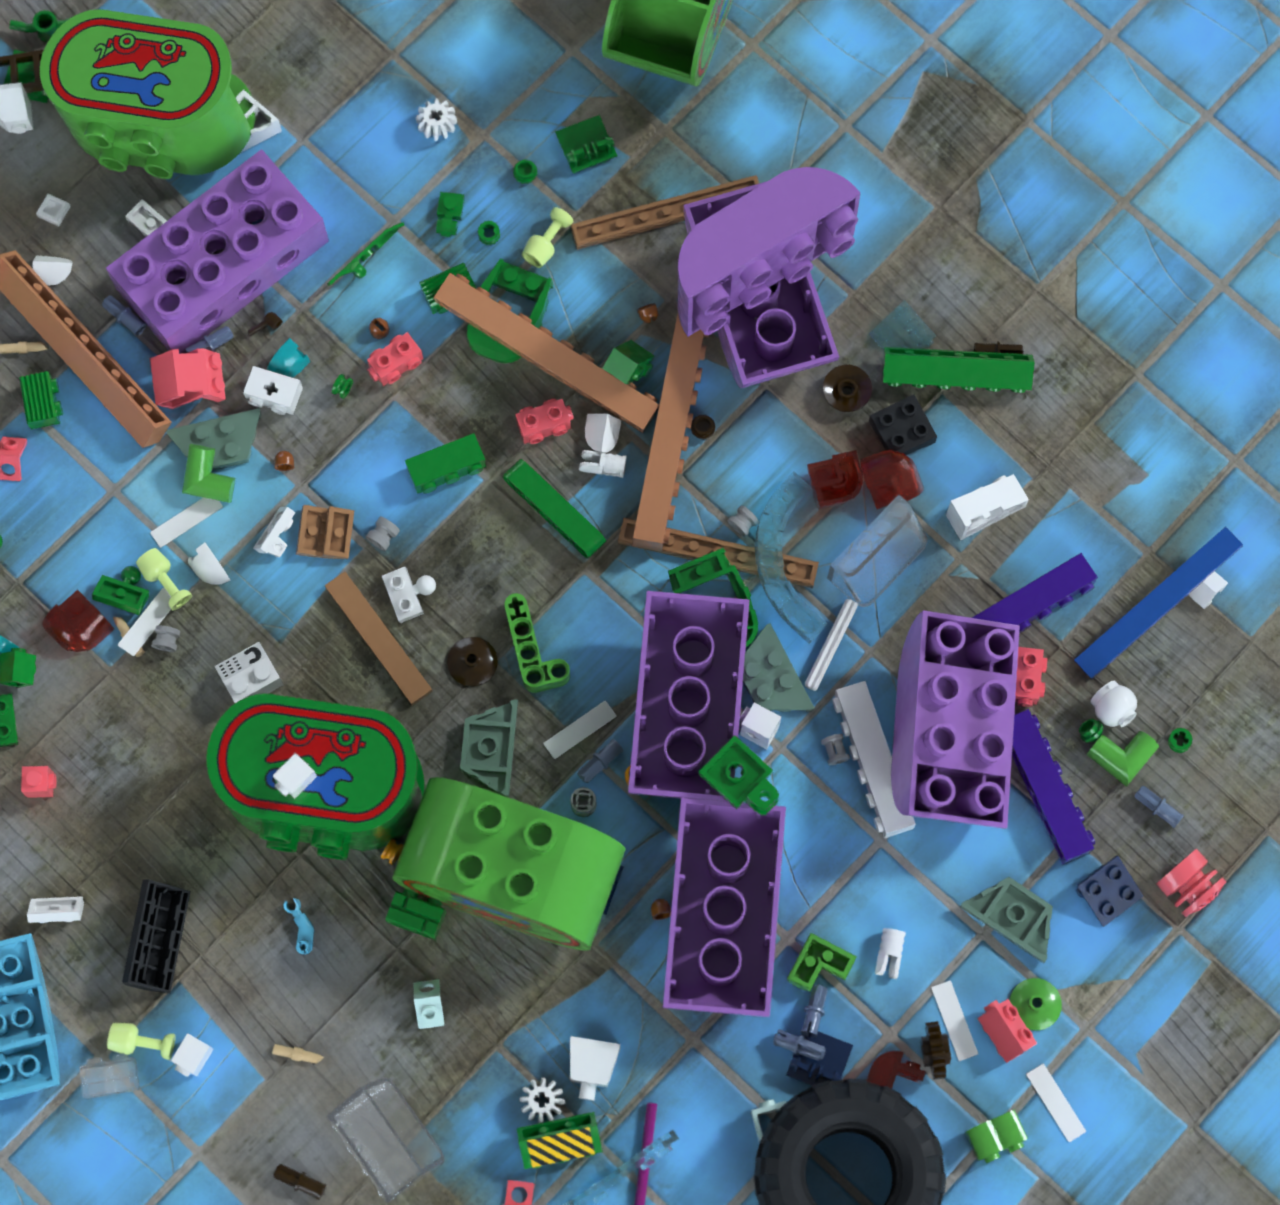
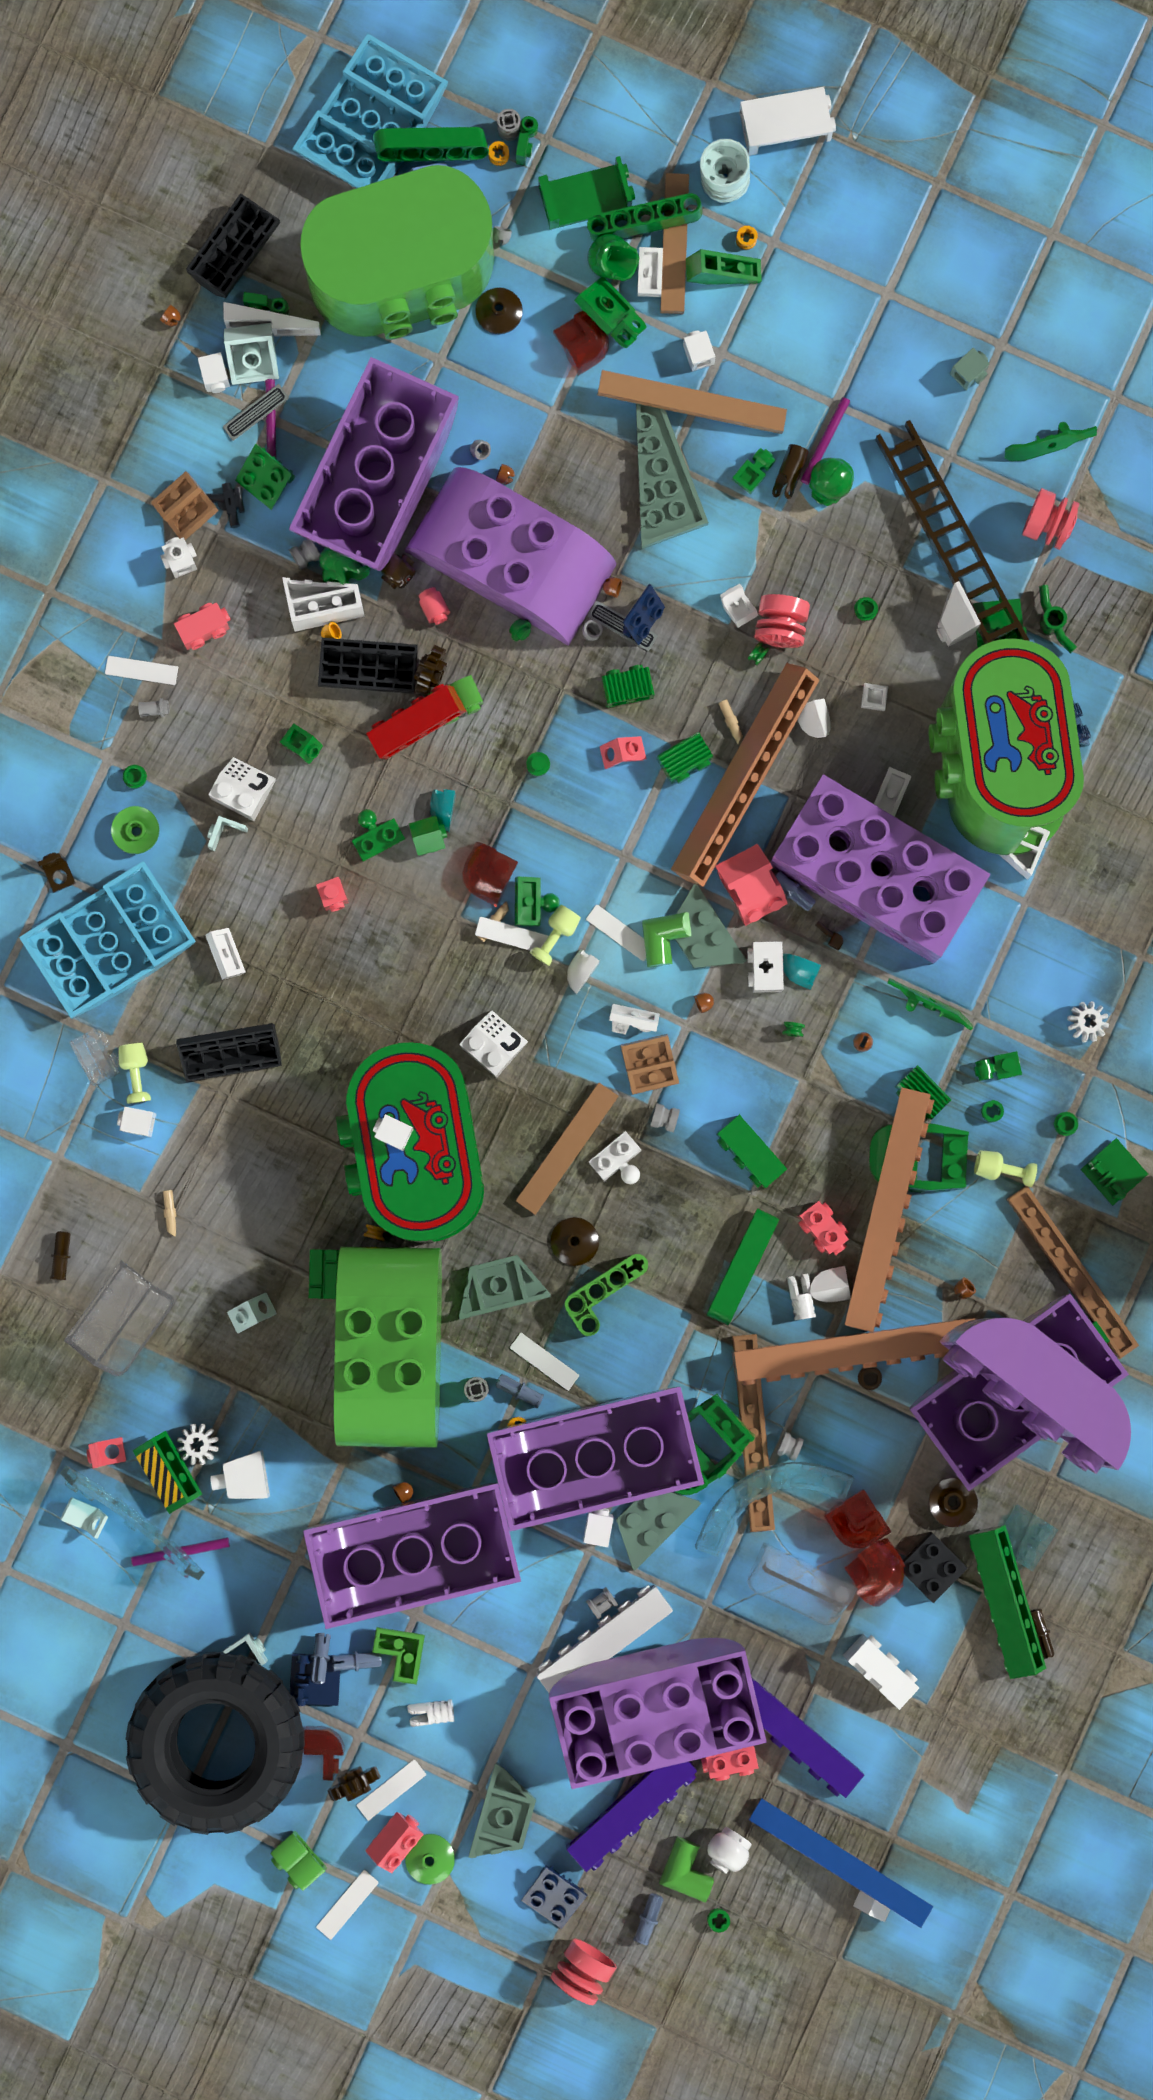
camera: 65 degrees right, 10 degrees up
(124, 315) = (793, 801): sand blue axle -> none
(166, 638) = (500, 957): light grey wheel -> none
(305, 928) = (280, 1180): medium azure arm -> none
(394, 359) = (831, 1065): coral brick -> none
(629, 362) = (904, 1290): green brick -> none
(749, 787) = (526, 1543): green plate -> none
(831, 644) = (700, 1566): white axle -> none
(1091, 730) = (698, 1834): green plate -> none

